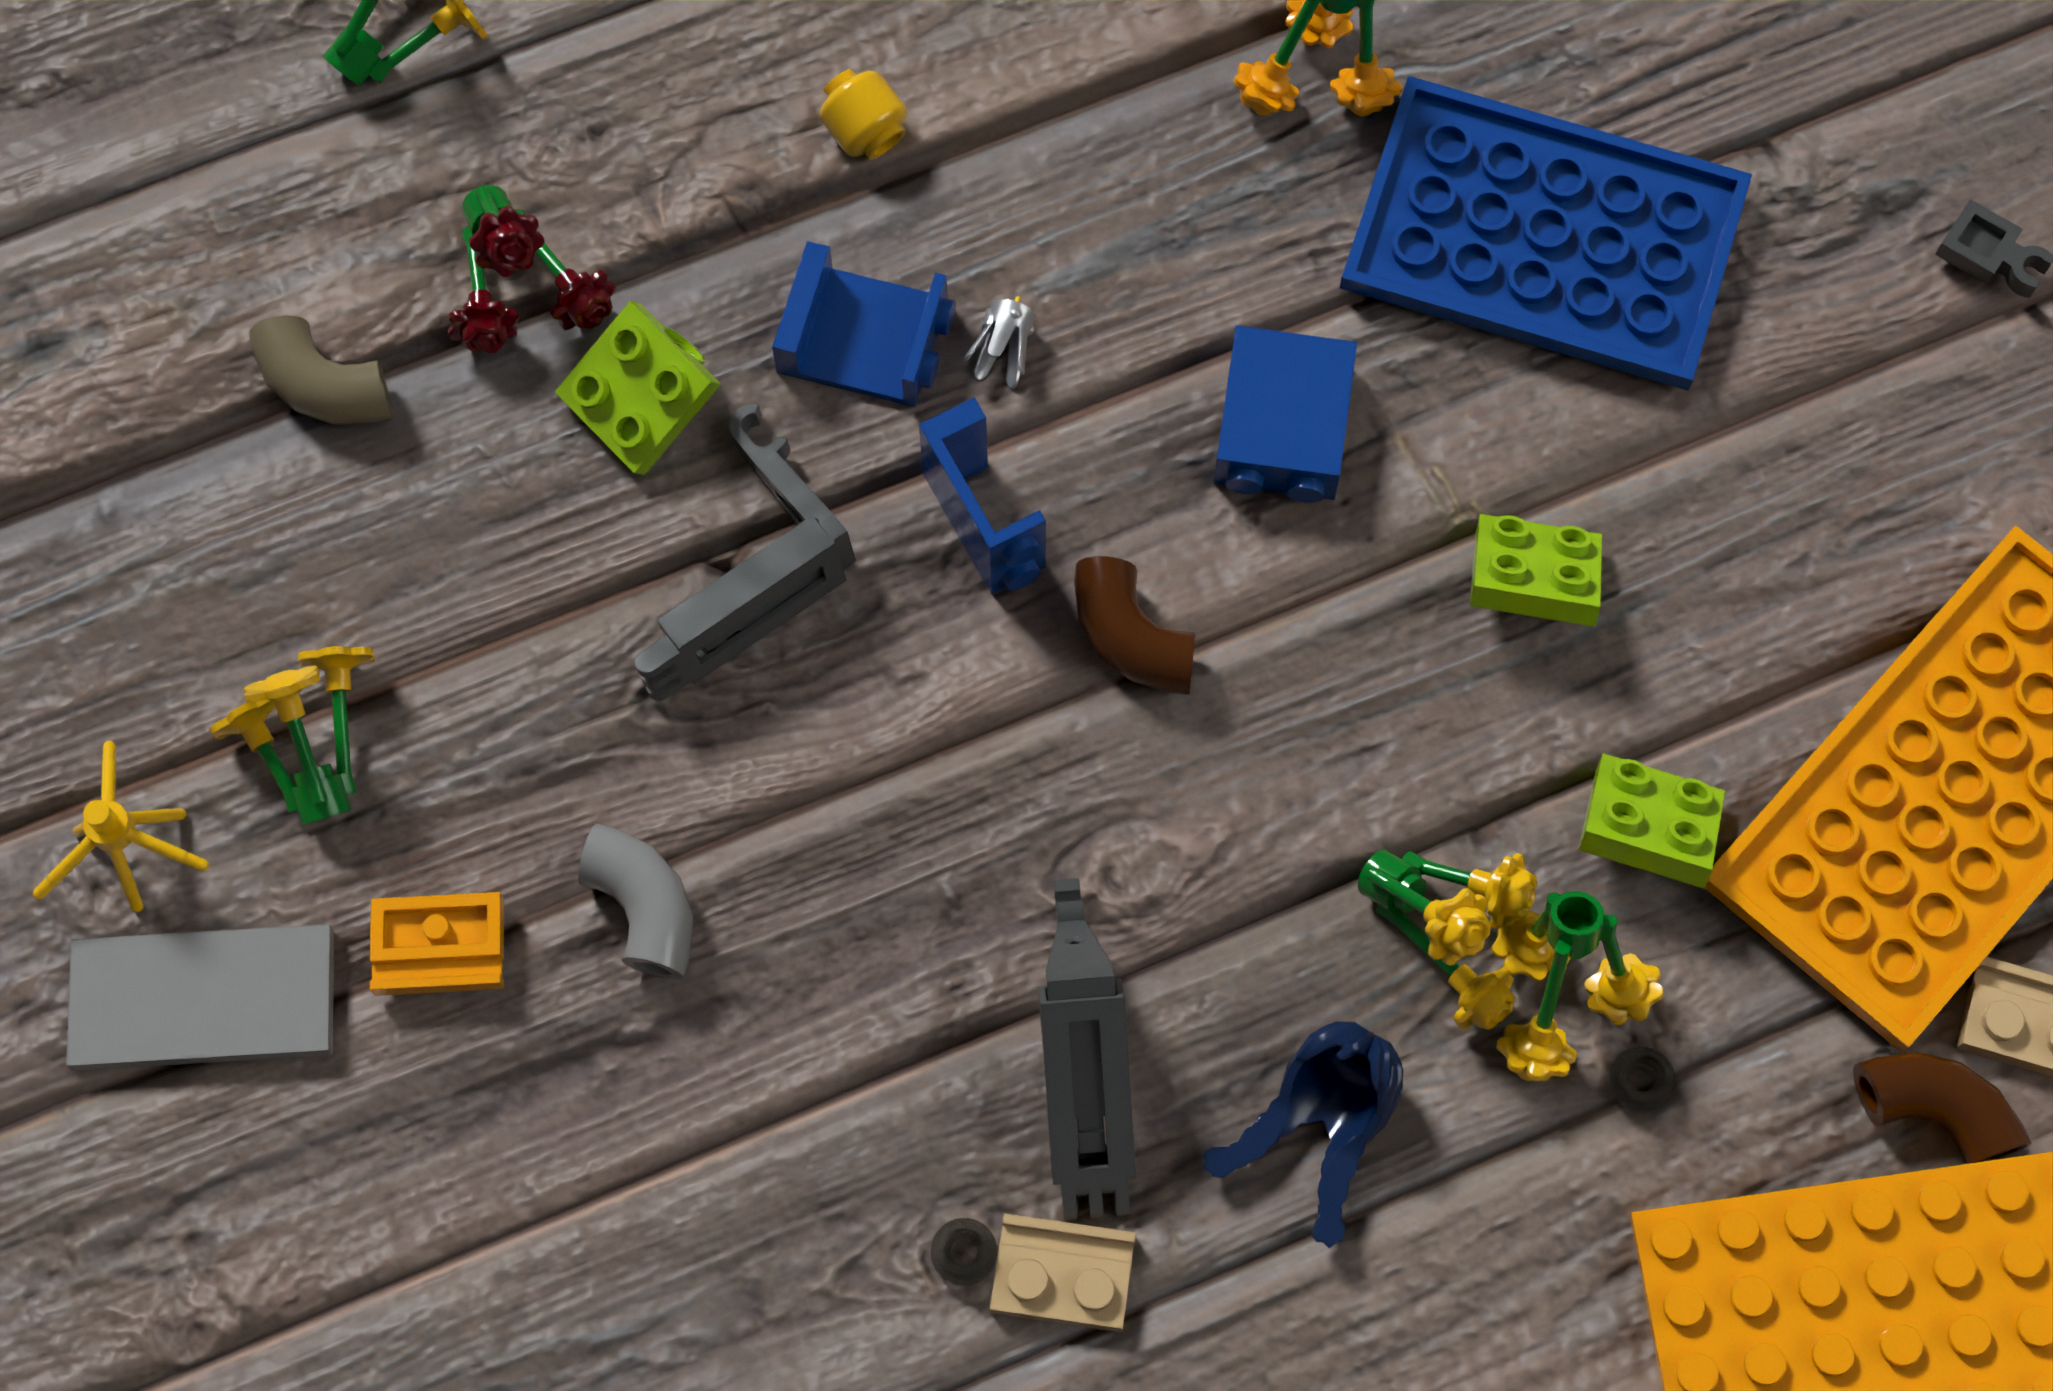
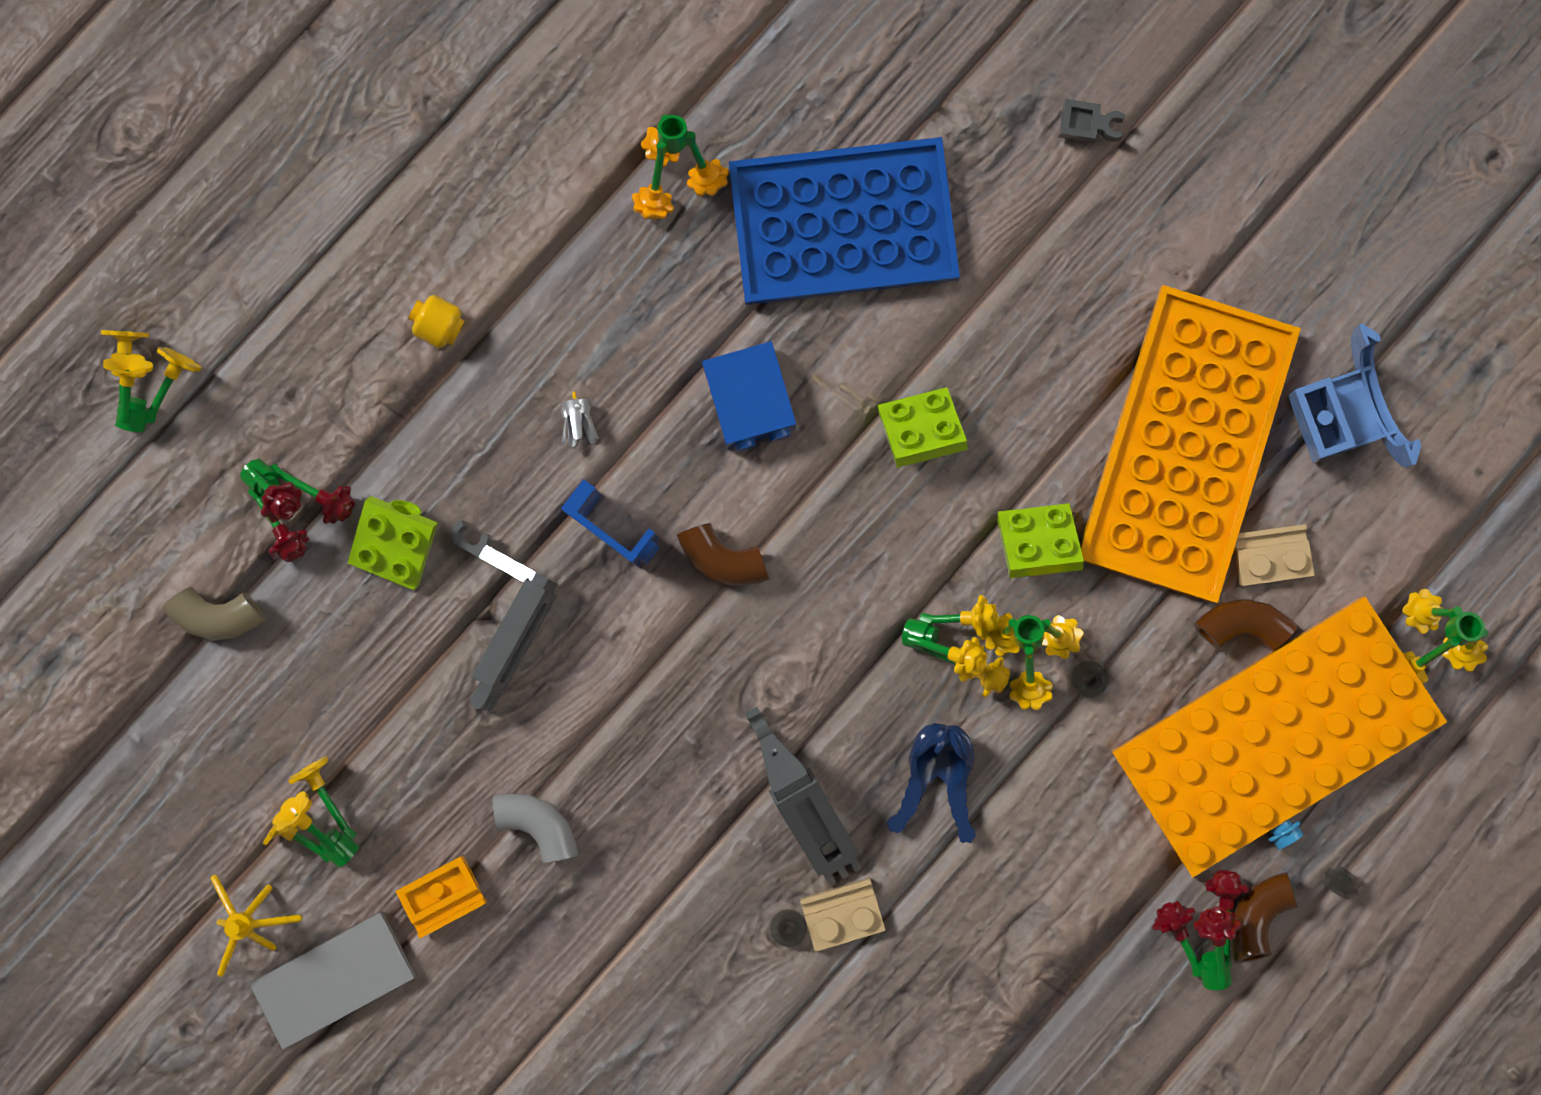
camera: 25 degrees left, 15 degrees up
(861, 330) = (497, 449): blue panel -> none

